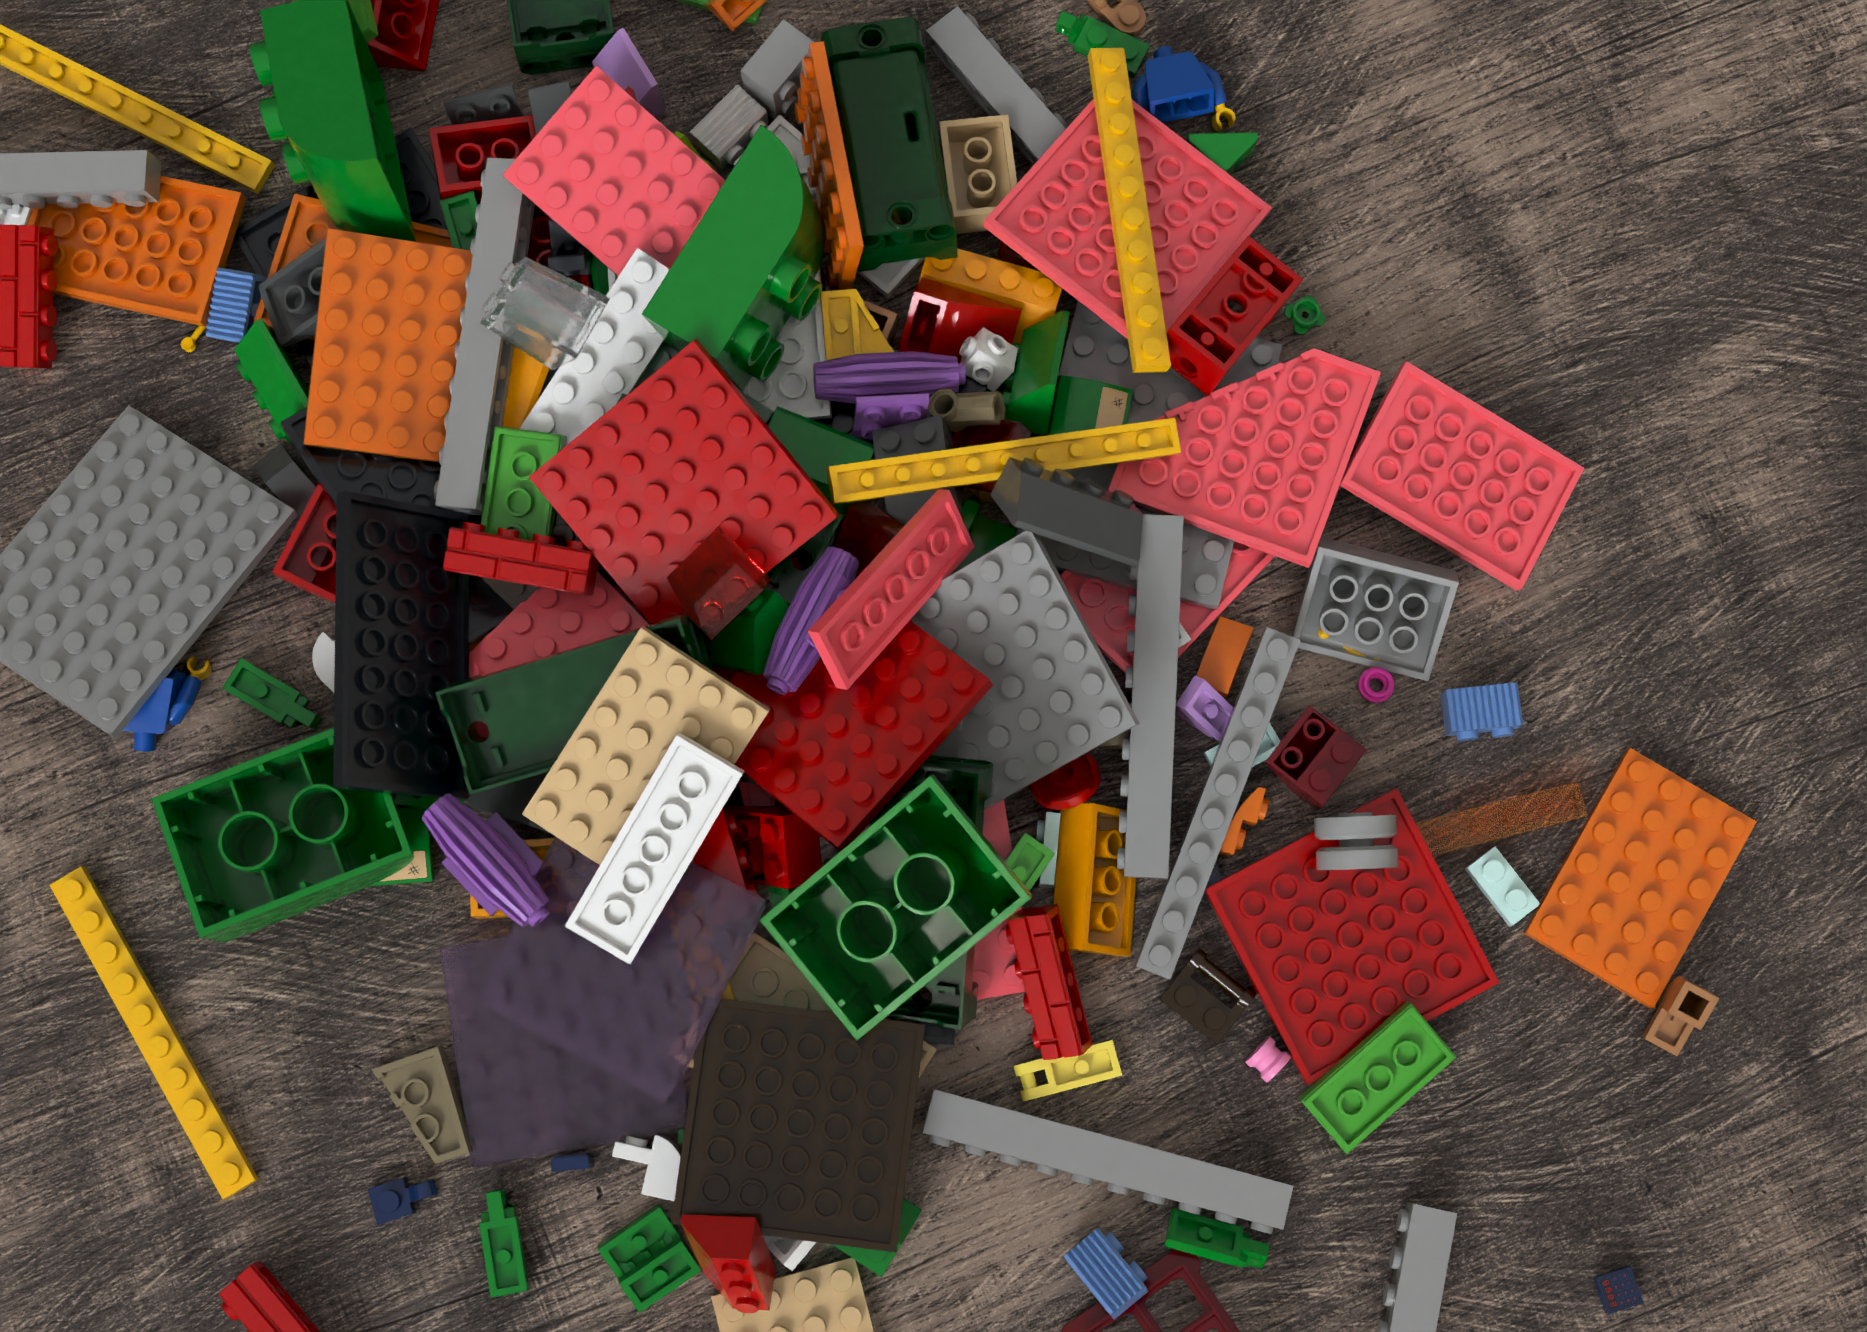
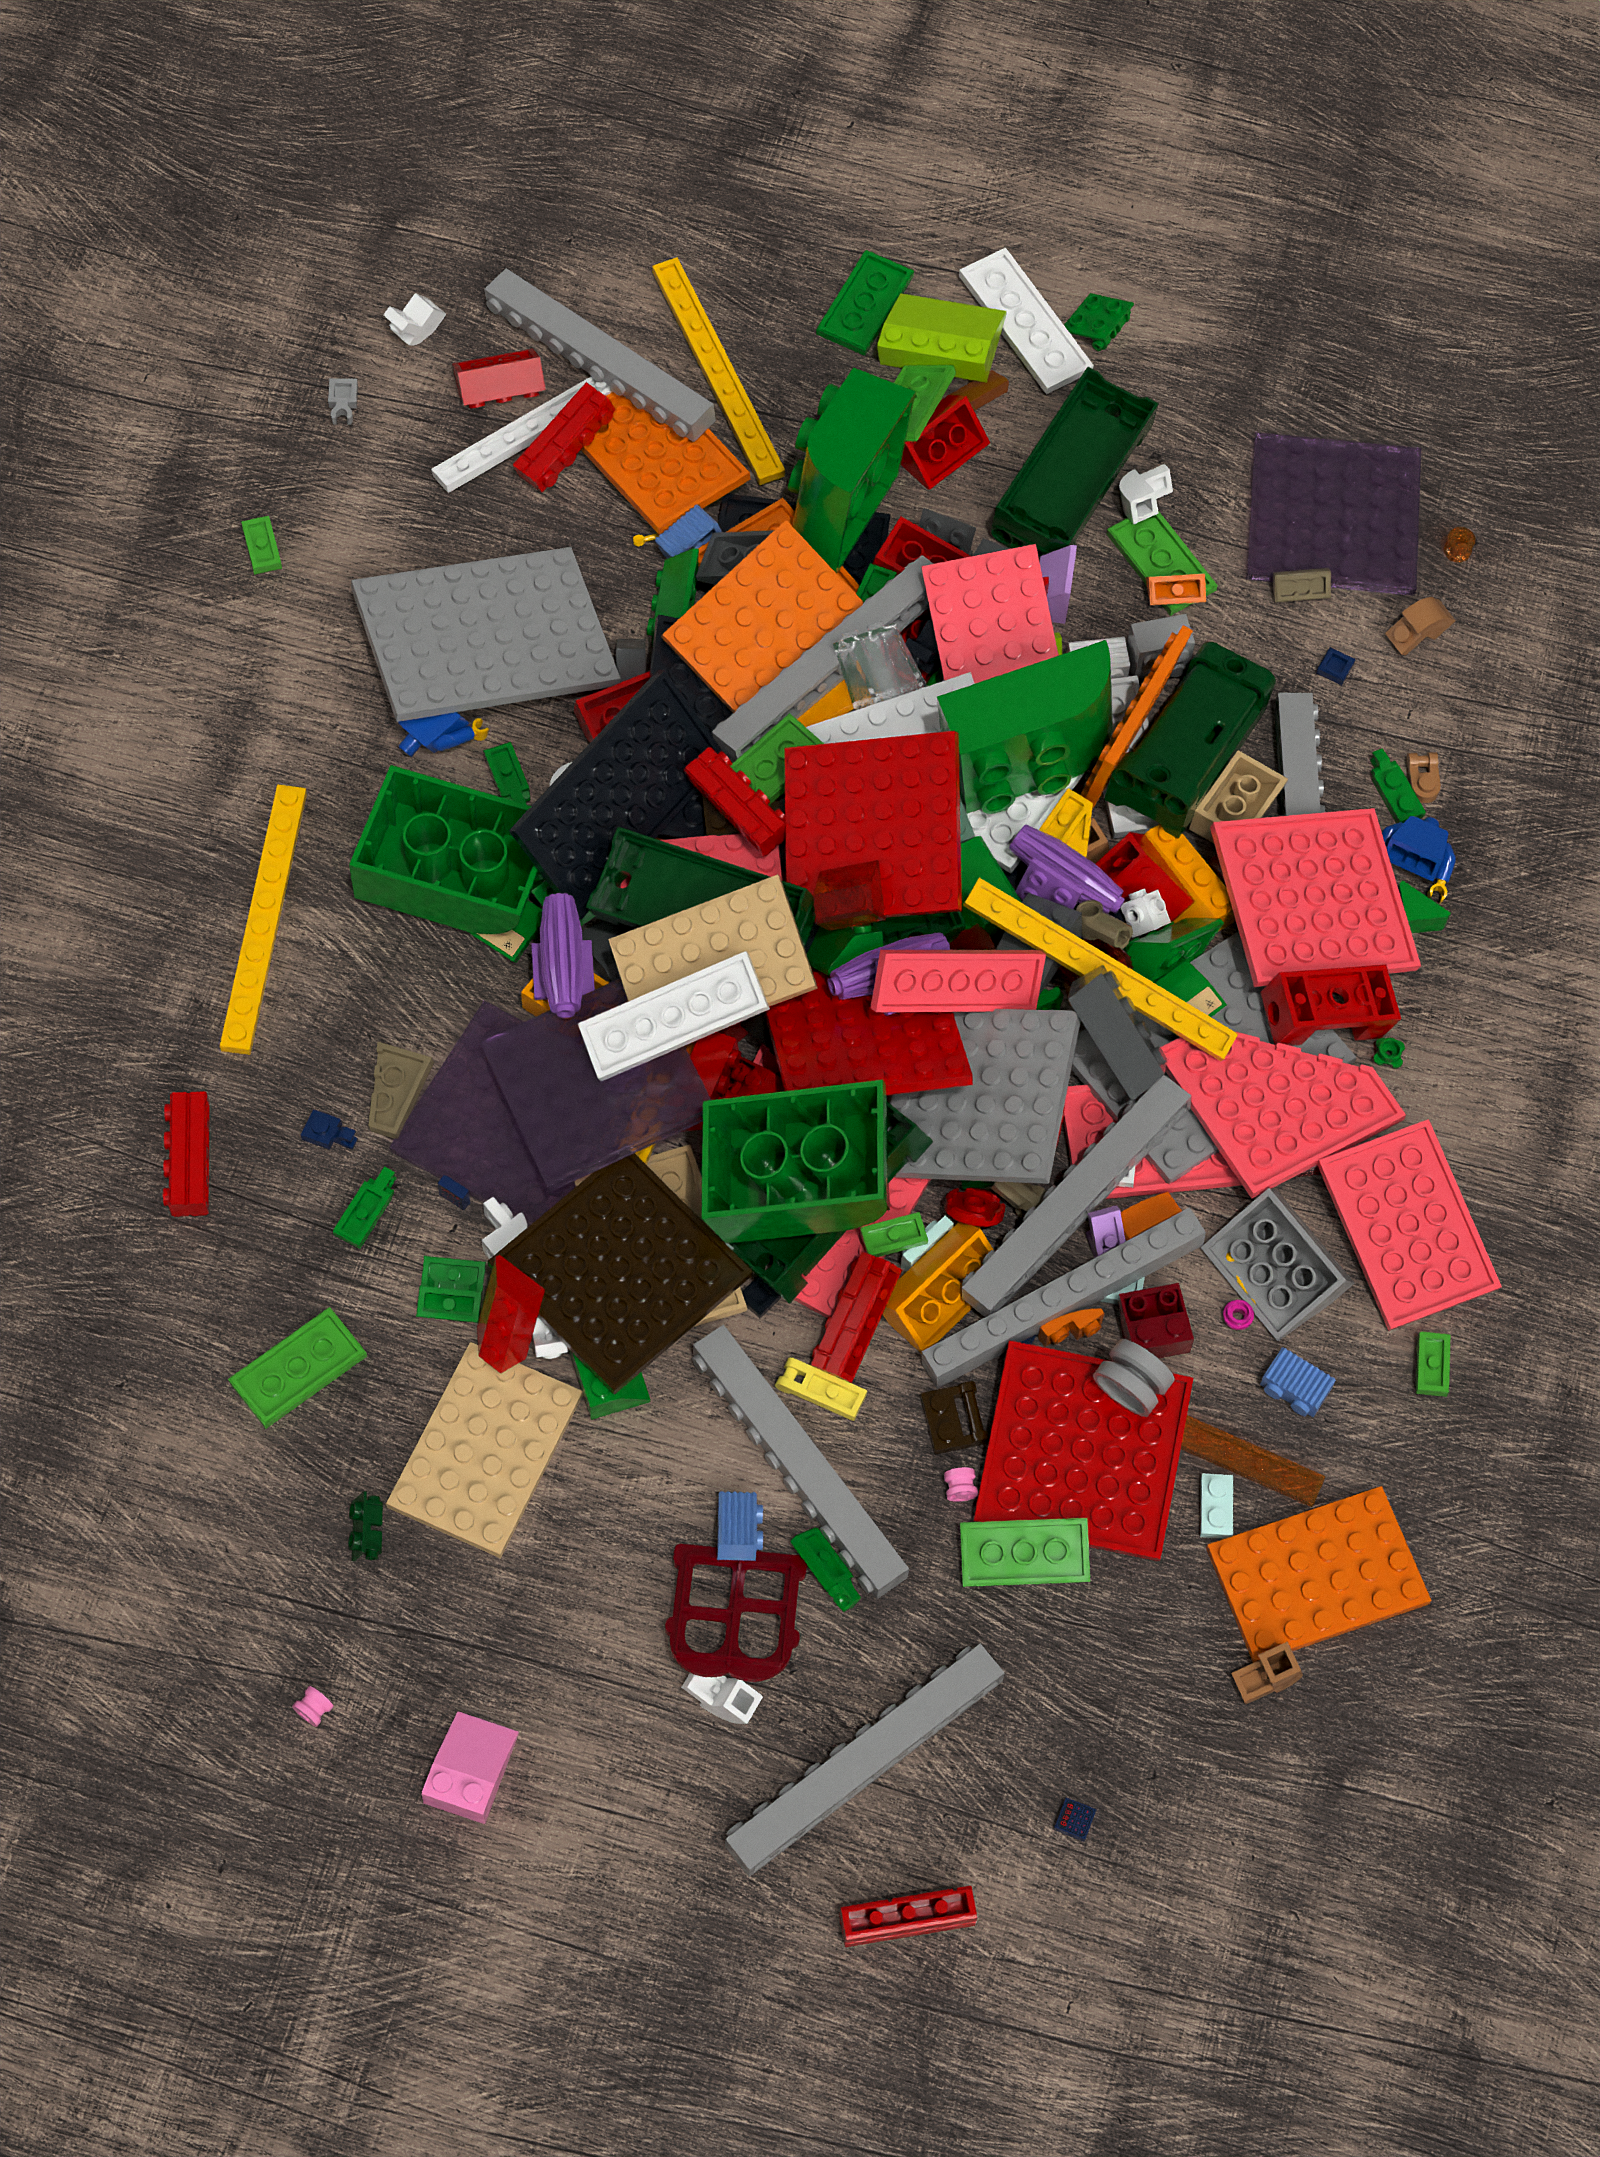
camera: 35 degrees right, 15 degrees down
(1129, 211) = (1316, 889): yellow plate -> none
(1582, 592) = (1433, 1364): none -> bright green plate

